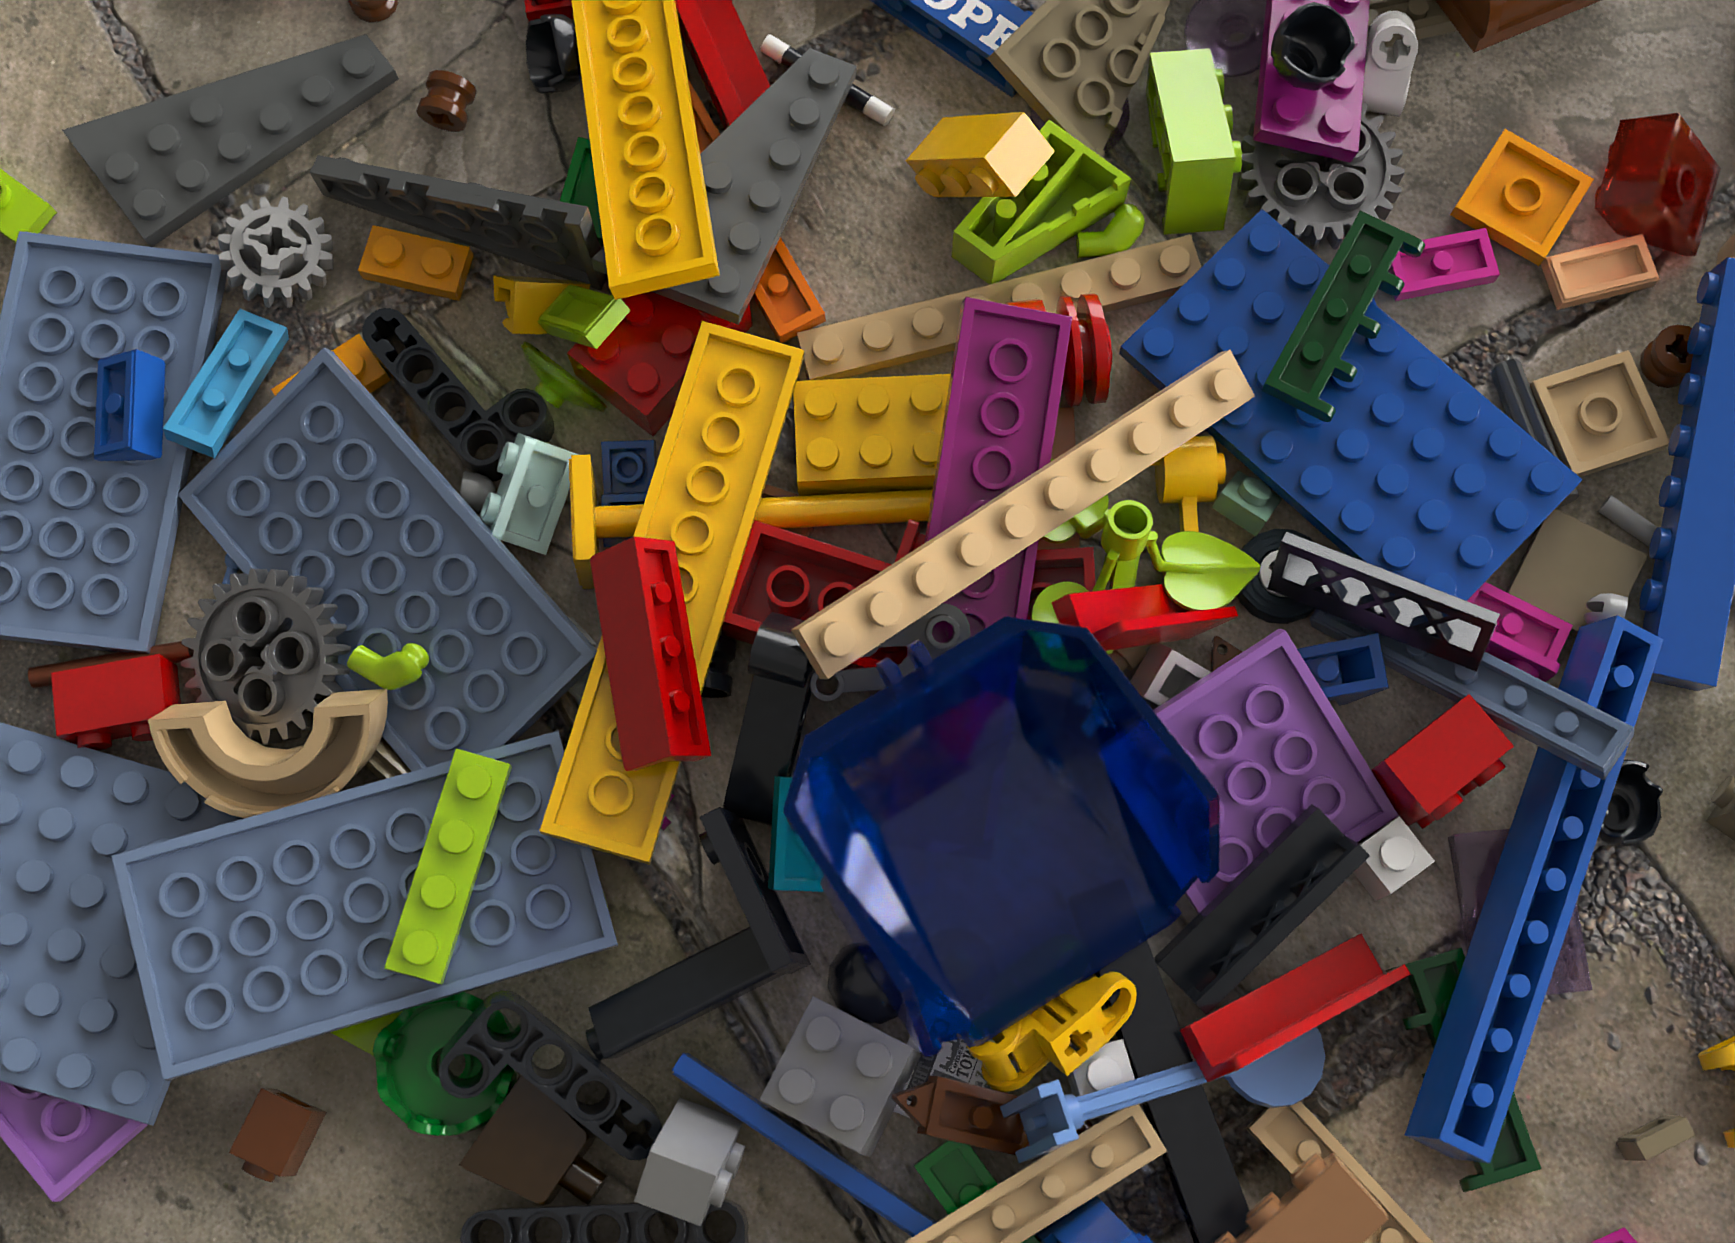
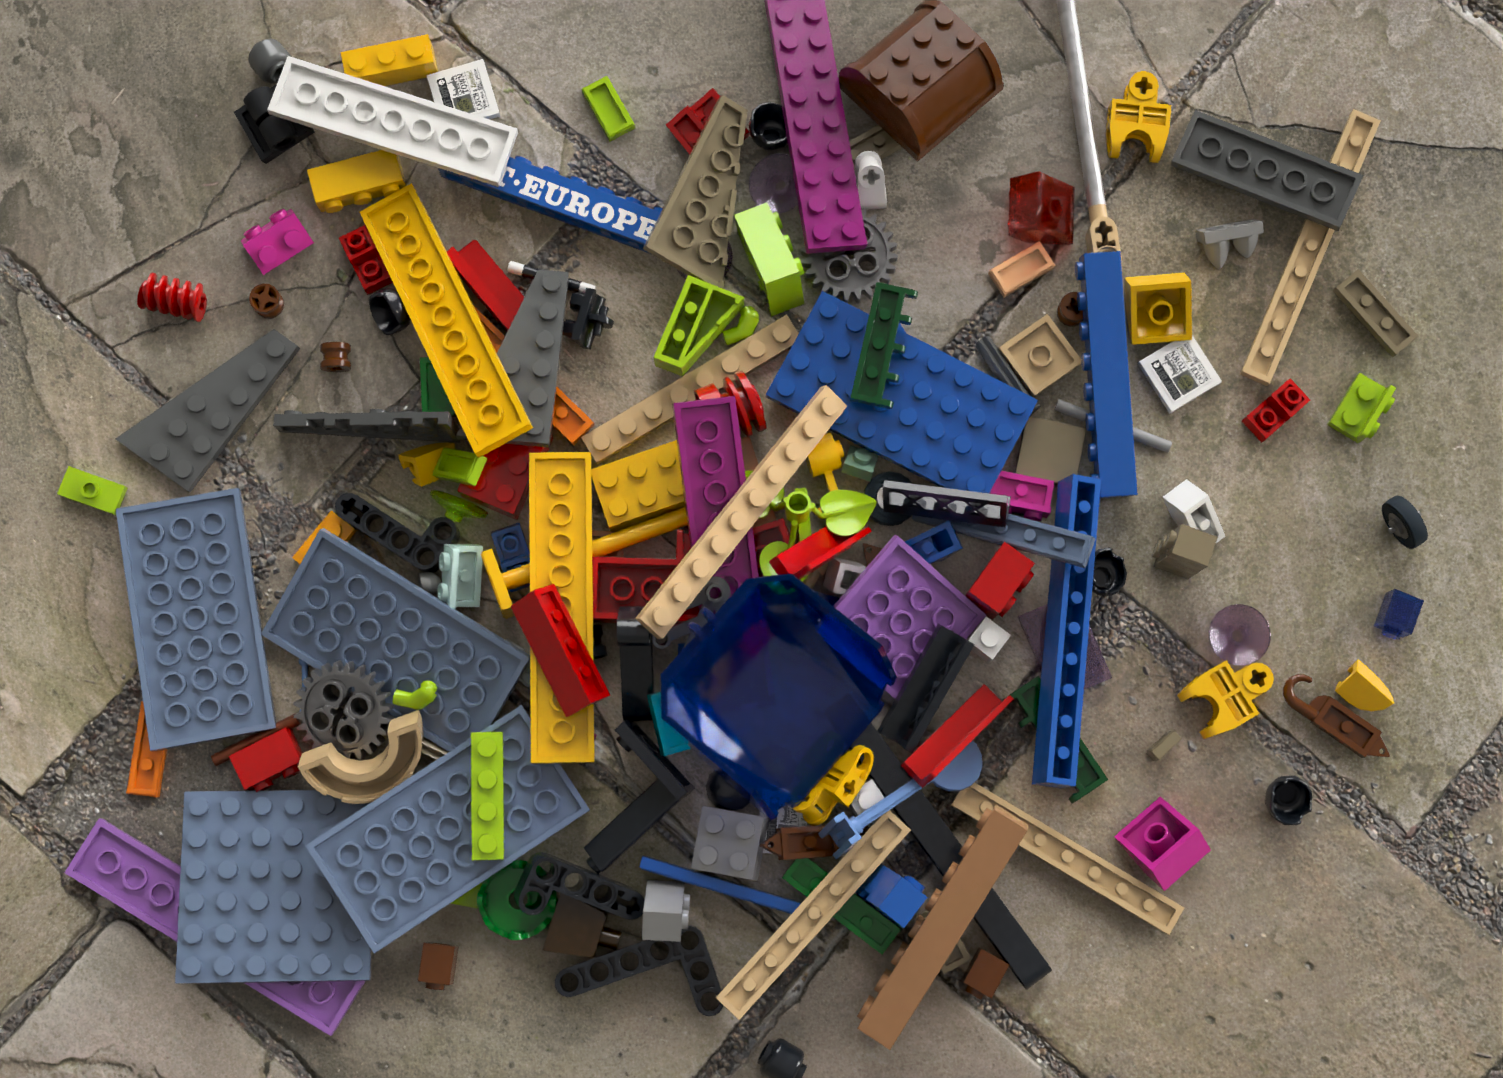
camera: 20 degrees left, 5 degrees up
(129, 407) = (217, 593): blue slope -> none
(226, 383) = (267, 562): dark azure plate -> none
(255, 241) = (256, 478): light grey gear -> none
(415, 262) = (348, 458): light orange plate -> none
(867, 155) = (590, 320): none -> black hips
(980, 156) = (654, 309): yellow brick -> none
(1312, 46) = (824, 195): black hair -> none
(1447, 265) = (934, 291): dark pink plate -> none
(1522, 197) = (967, 238): light orange plate -> none
(1605, 606) = (1071, 465): light grey hinge -> none

